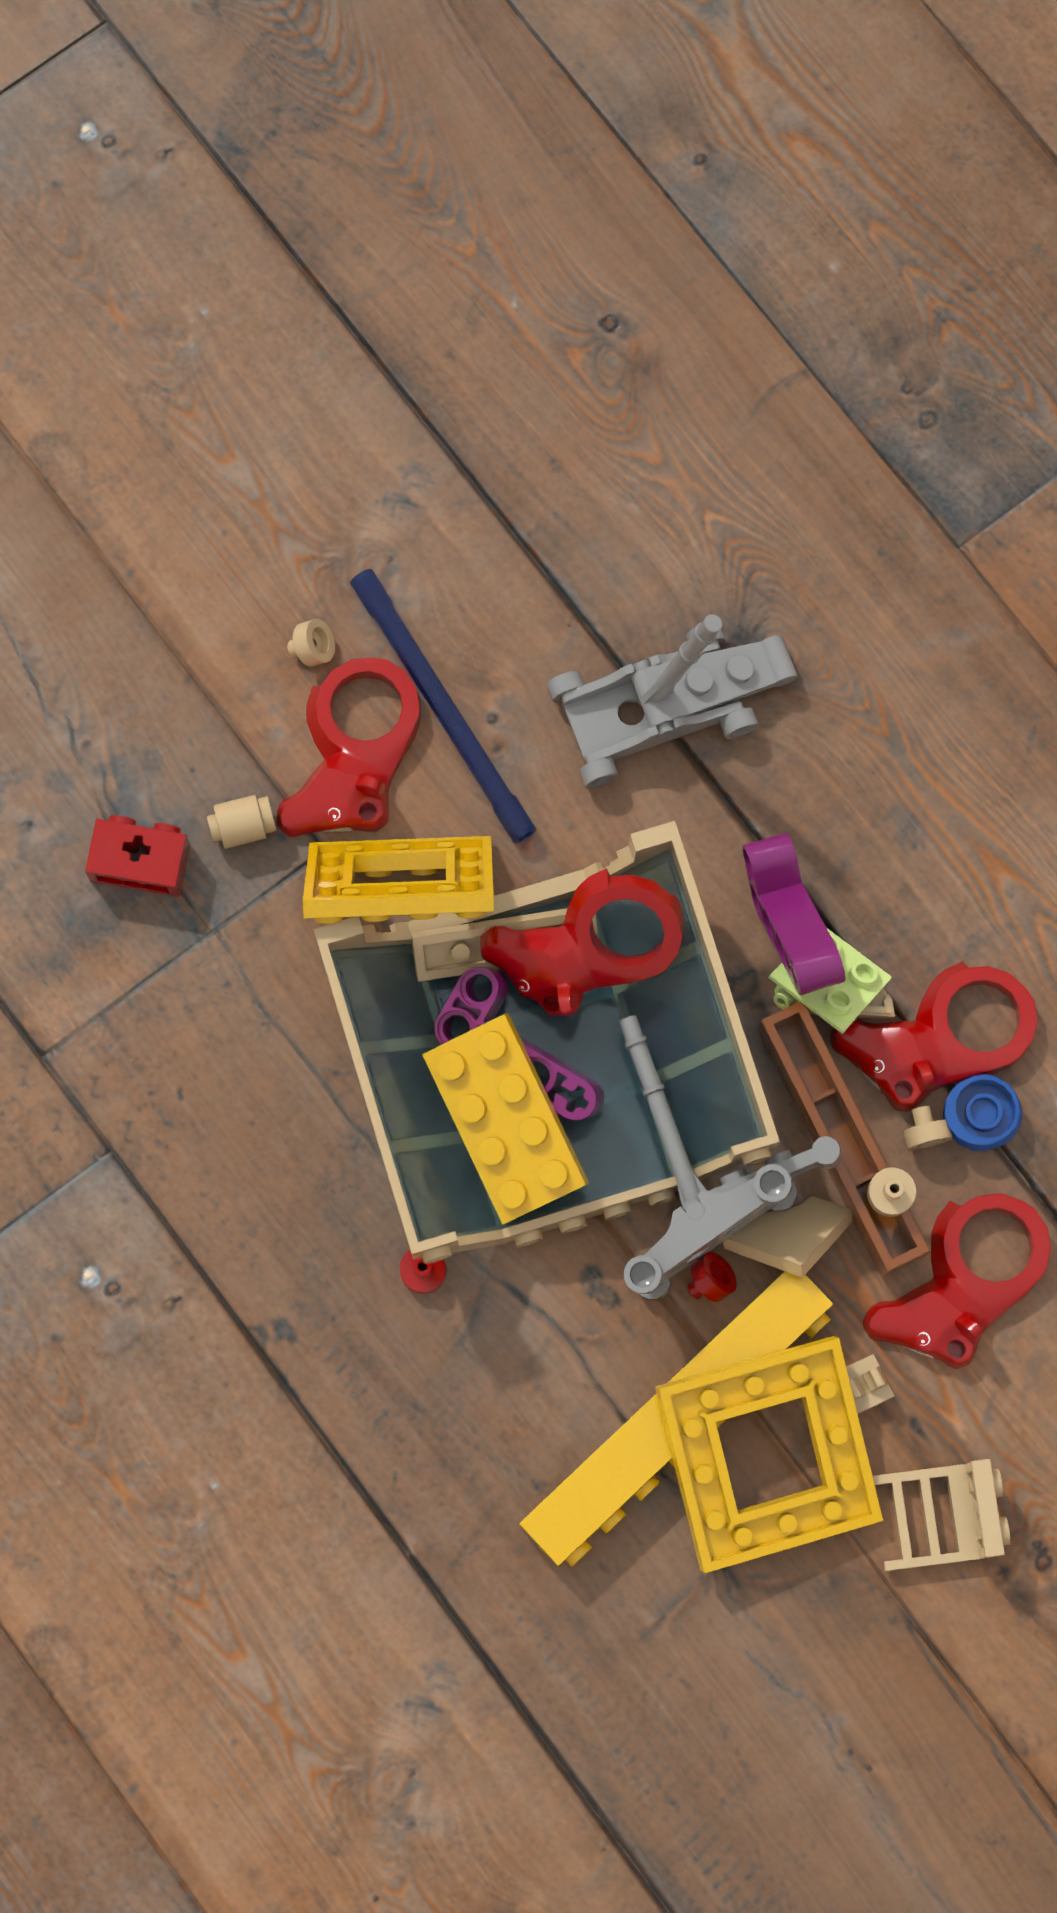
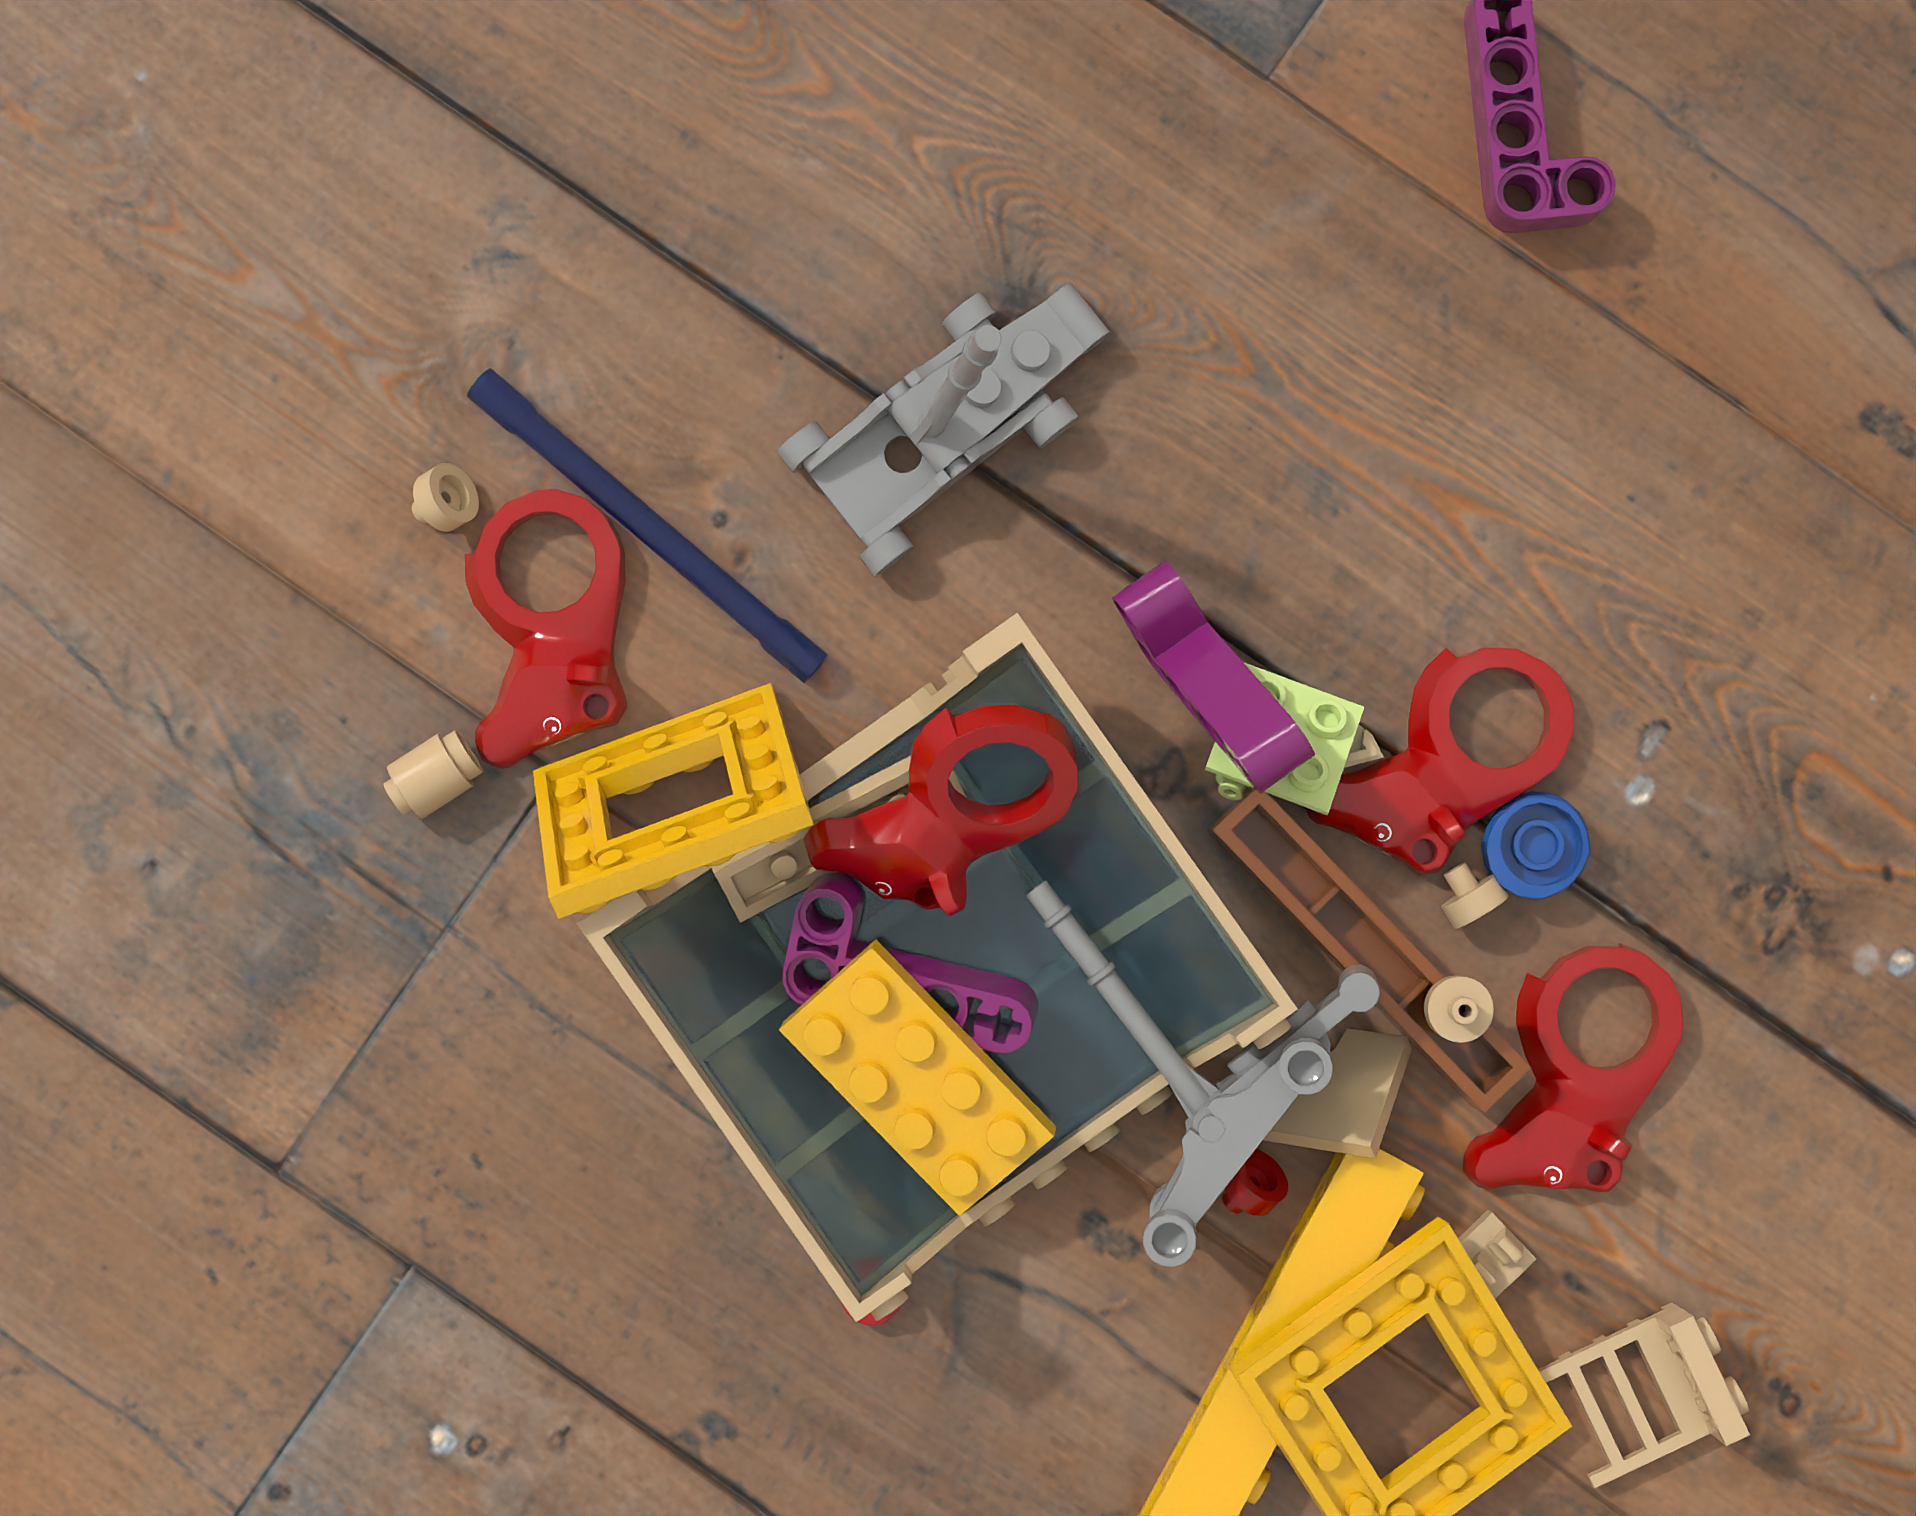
camera: 15 degrees left, 10 degrees up
(157, 872) = (272, 873): red brick -> none

